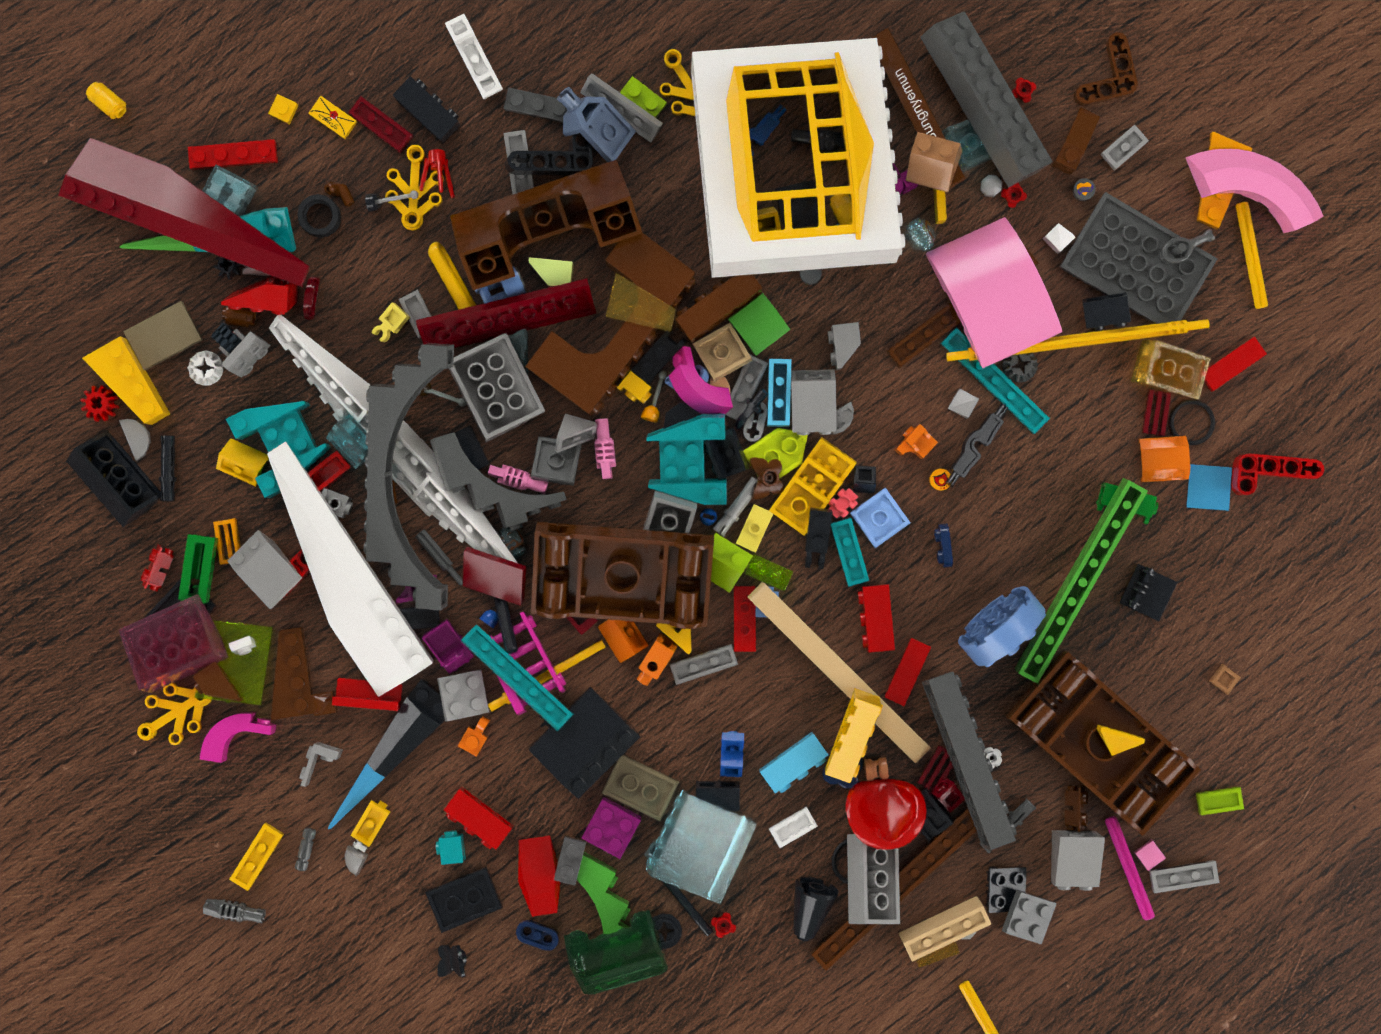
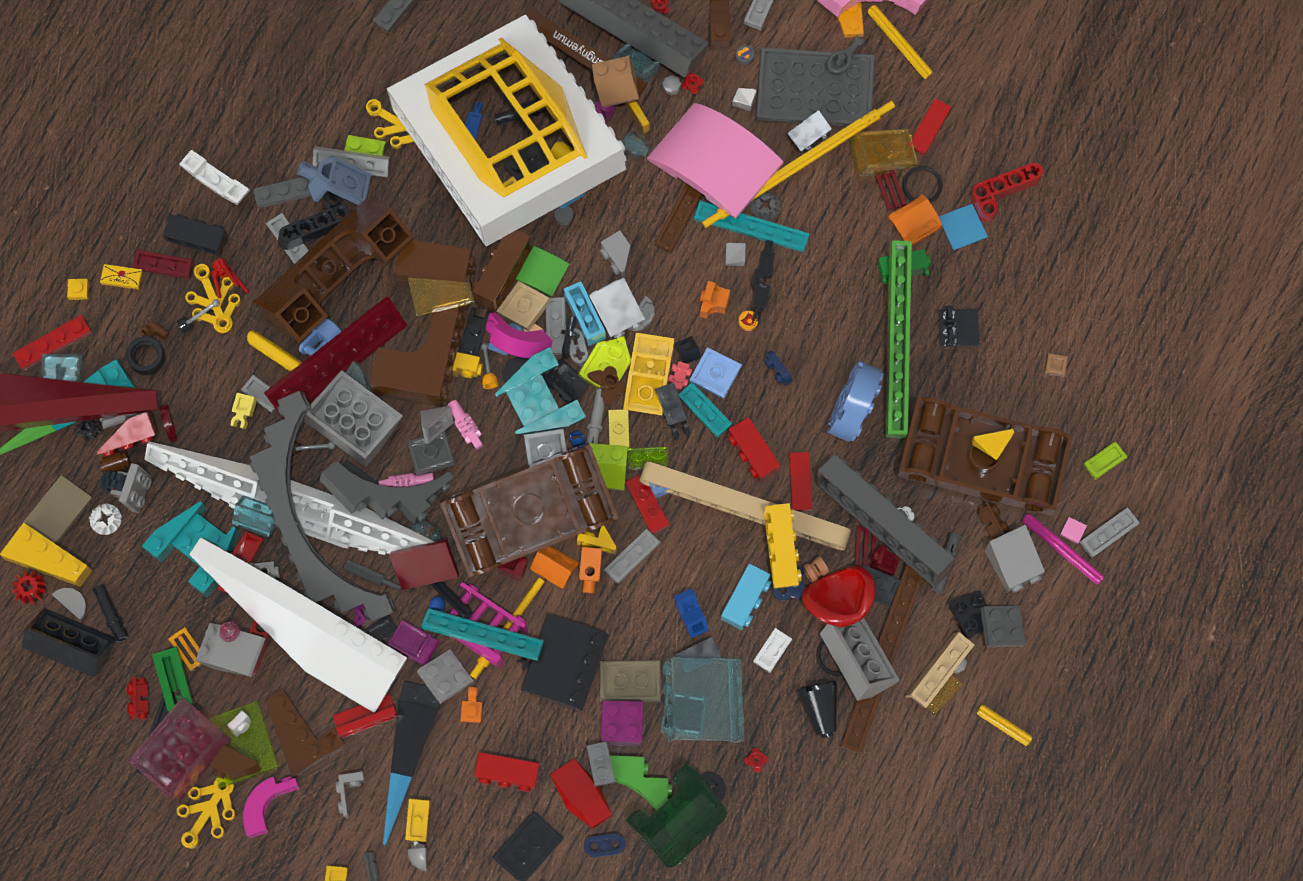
camera: 30 degrees left, 15 degrees down
(241, 461) = (170, 579): yellow panel -> none
(265, 549) = (224, 630): none -> clear pink plate
(451, 847) = (495, 807): teal brick -> none
(553, 271) = (354, 307): yellowish green slope -> none
(689, 908) = (712, 757): black bar -> none

